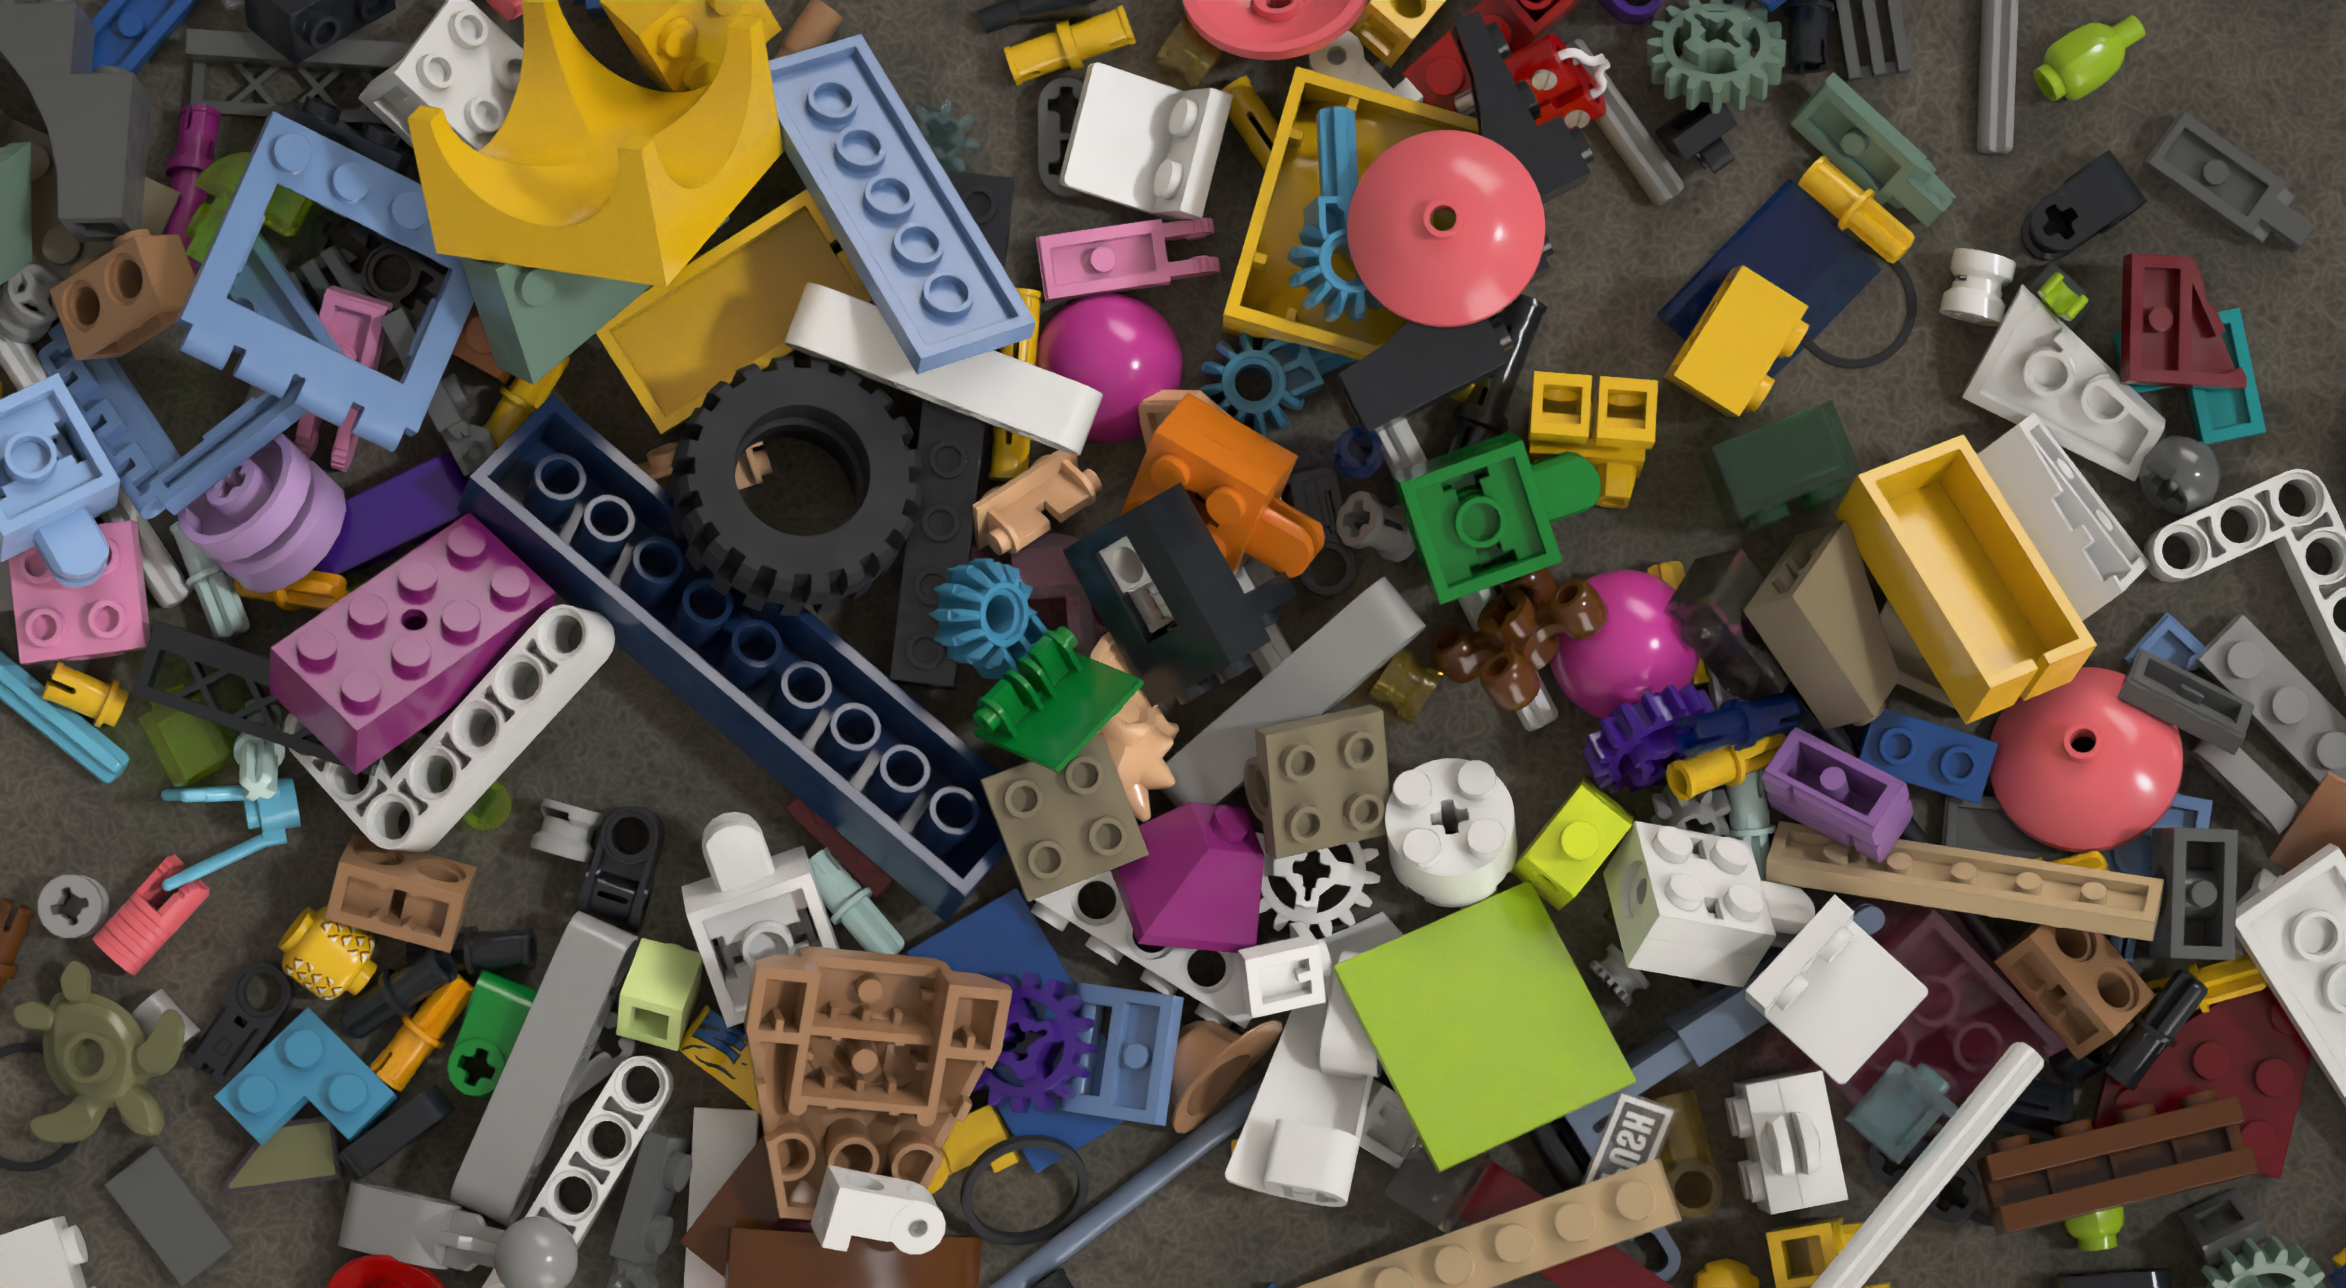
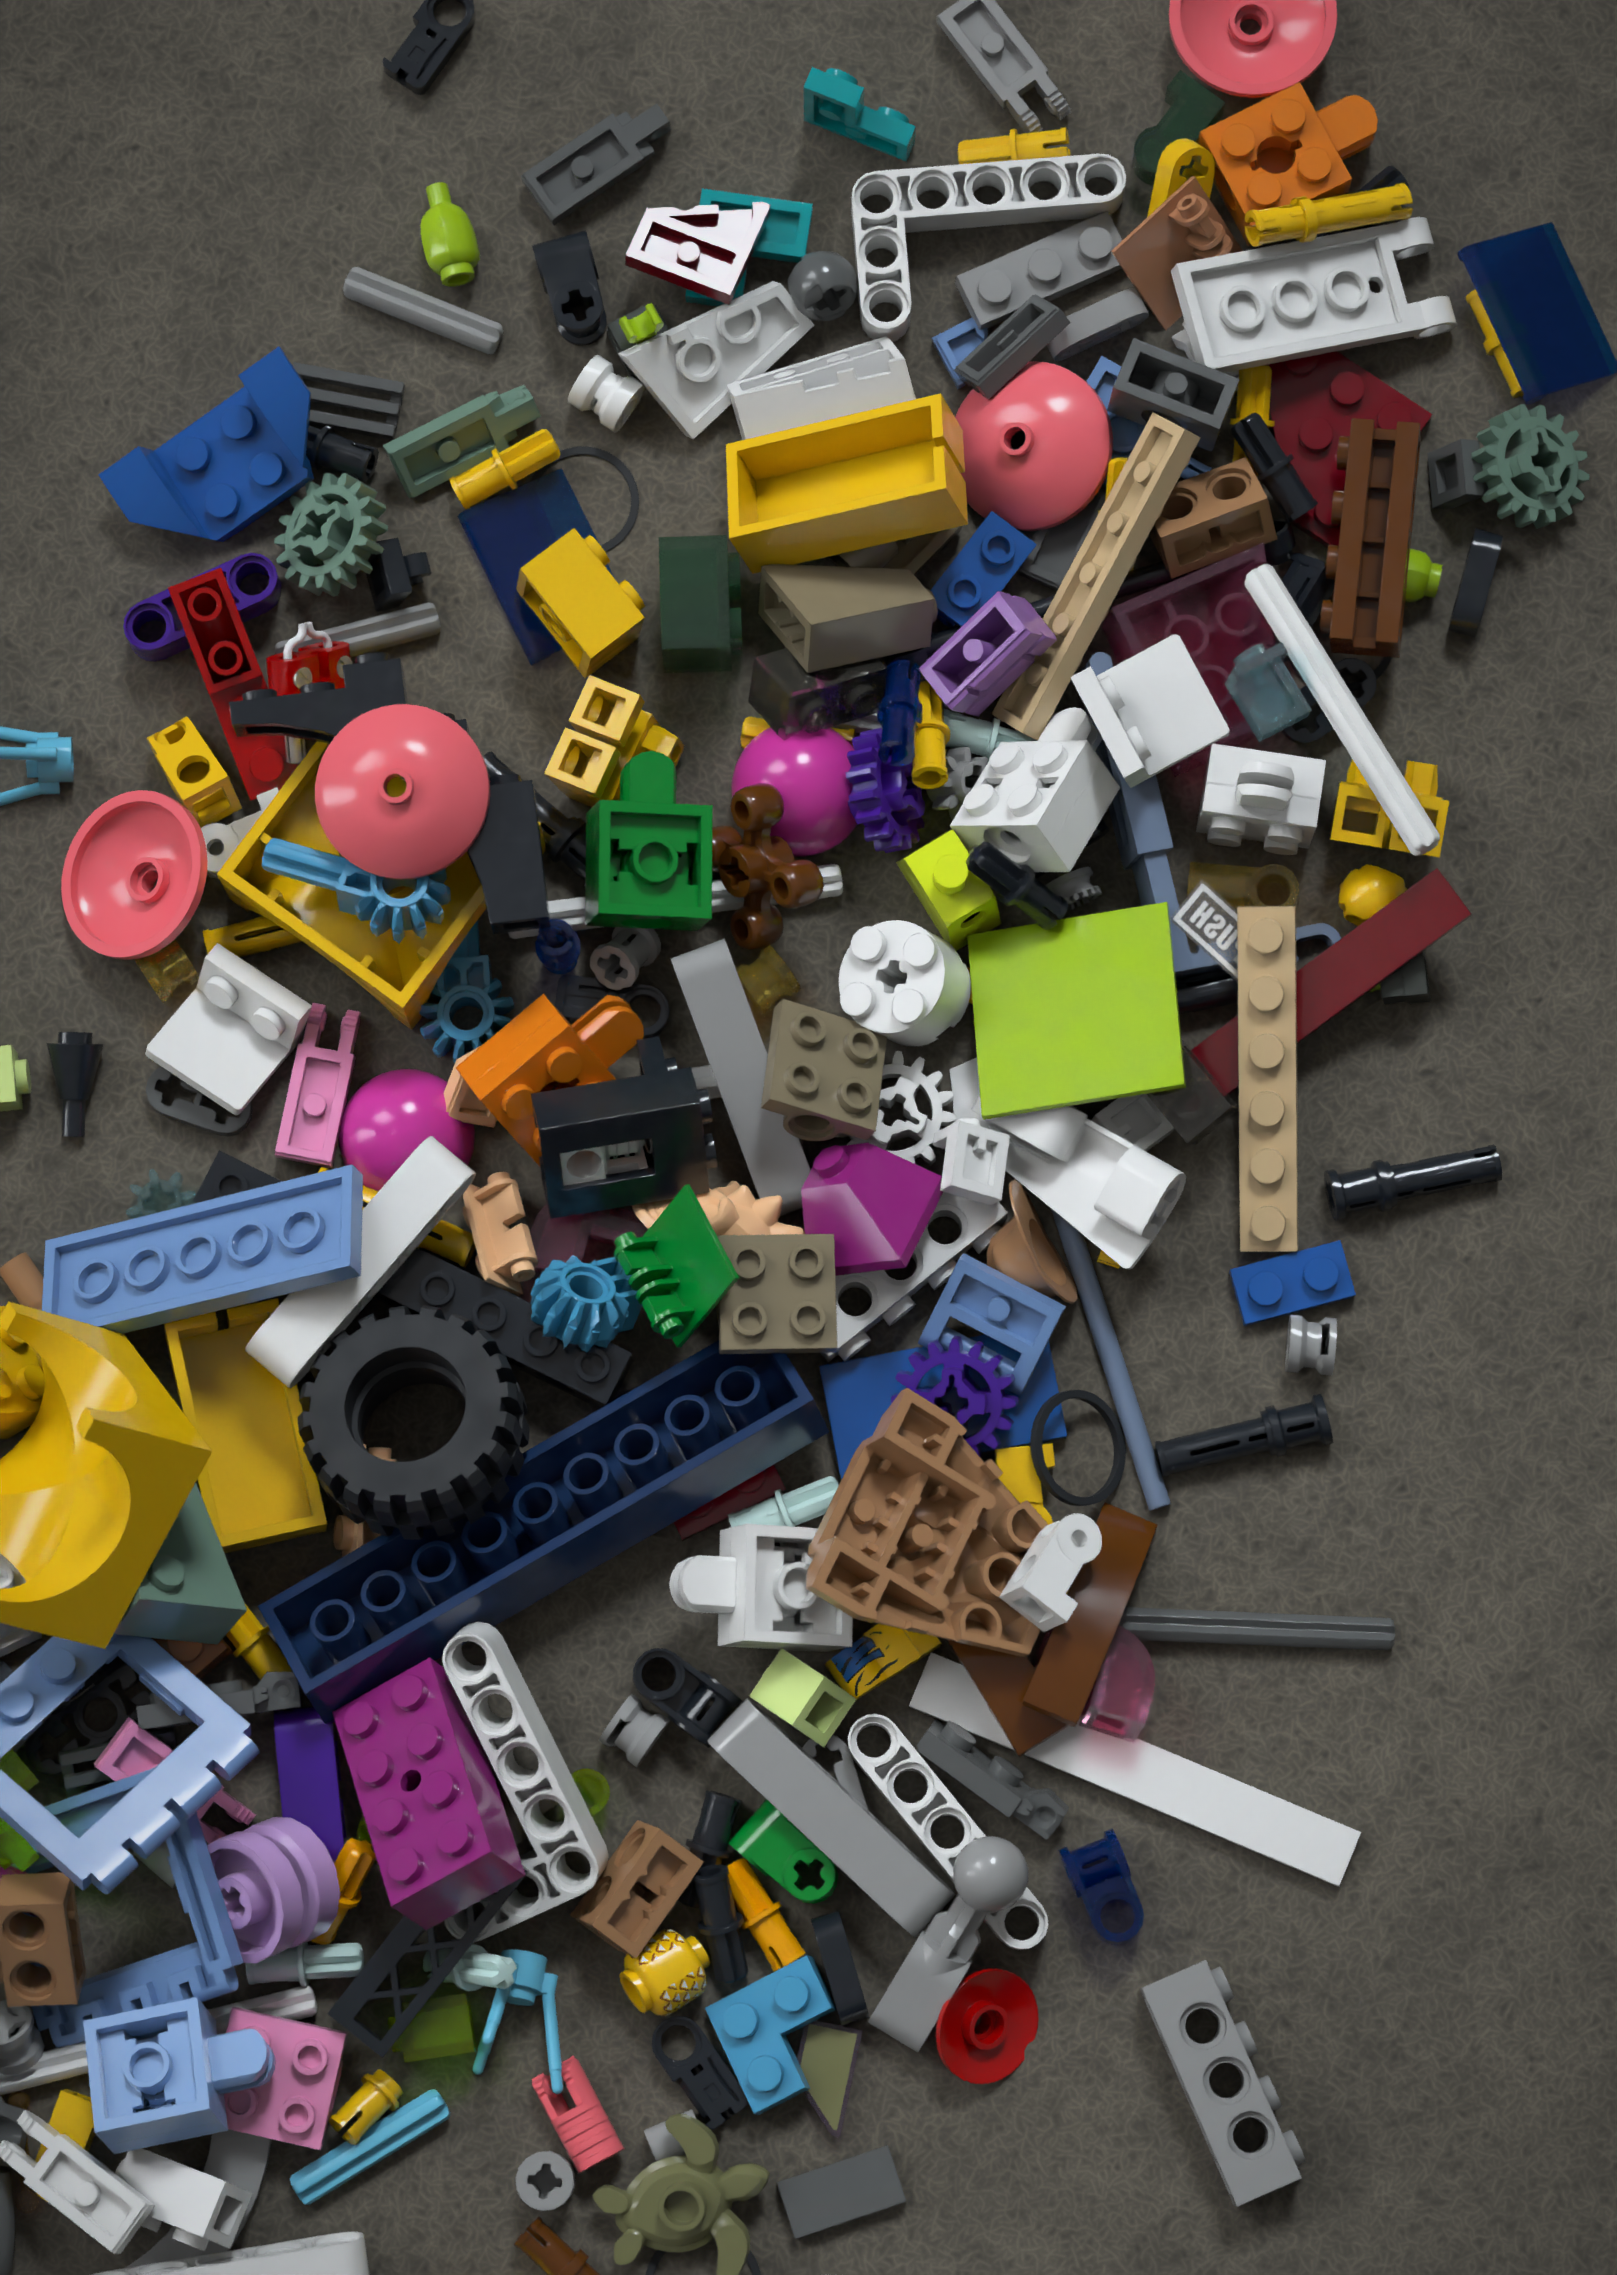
camera: 70 degrees left, 5 degrees down
(1069, 45) = (121, 1069): yellow pin -> none
(1595, 914) = (1016, 884): none -> black axle

